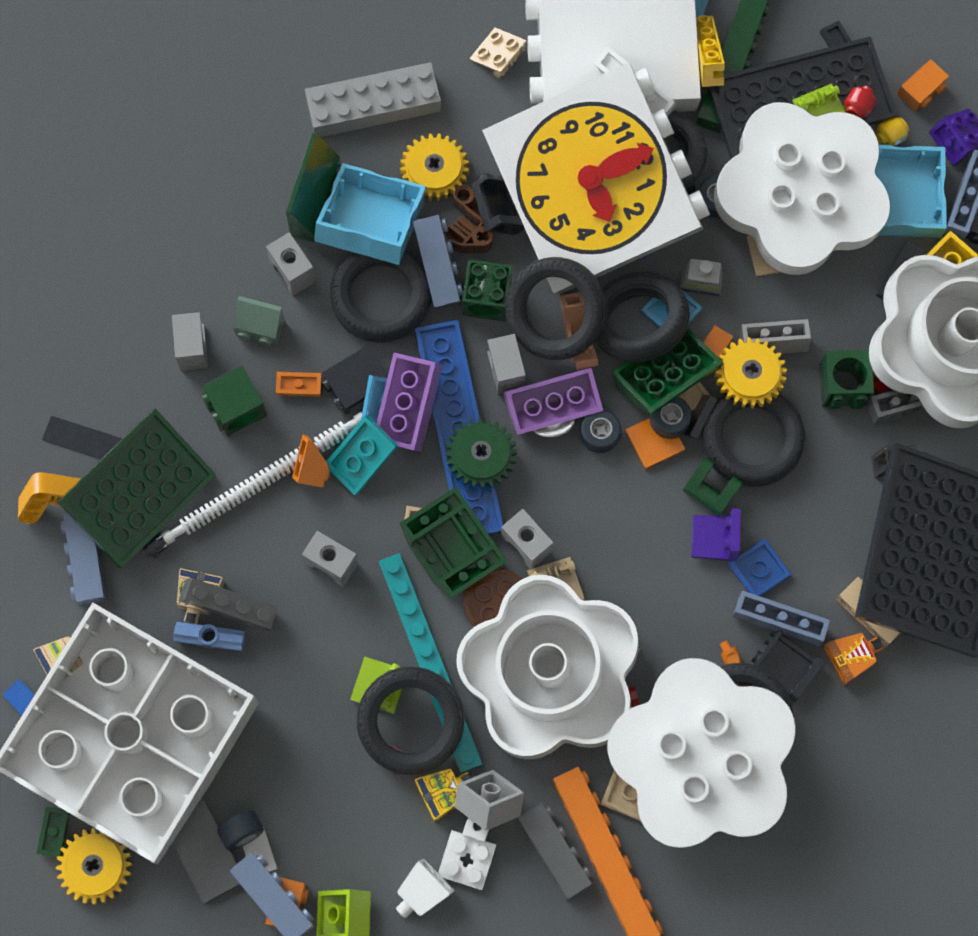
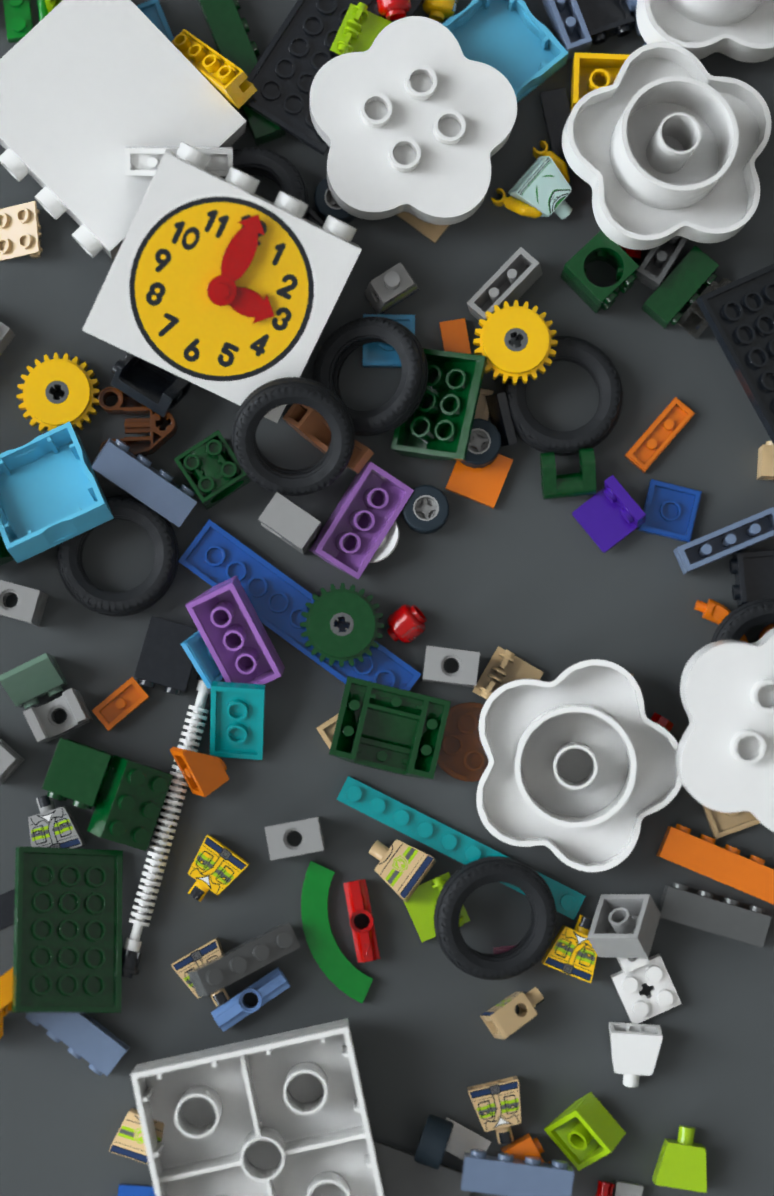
camera: 40 degrees left, 10 degrees up
(189, 421) = (54, 826): none -> torso
(242, 350) = (42, 718): none -> light grey piece
(248, 446) = (130, 803): none -> dark green brick
(262, 535) = (214, 868): none -> torso
(289, 638) = (320, 936): none -> green tile
(302, 847) = (498, 1106): none -> torso
(331, 637) = (364, 938): none -> red piece
(356, 793) = (502, 1018): none -> tan torso
(381, 639) = (401, 866): none -> tan torso
(523, 490) = (406, 623): none -> red head
(795, 516) = (659, 434): none -> orange tile
(854, 297) = (540, 188): none -> light aqua torso
(876, 434) = (681, 287): none -> dark green brick

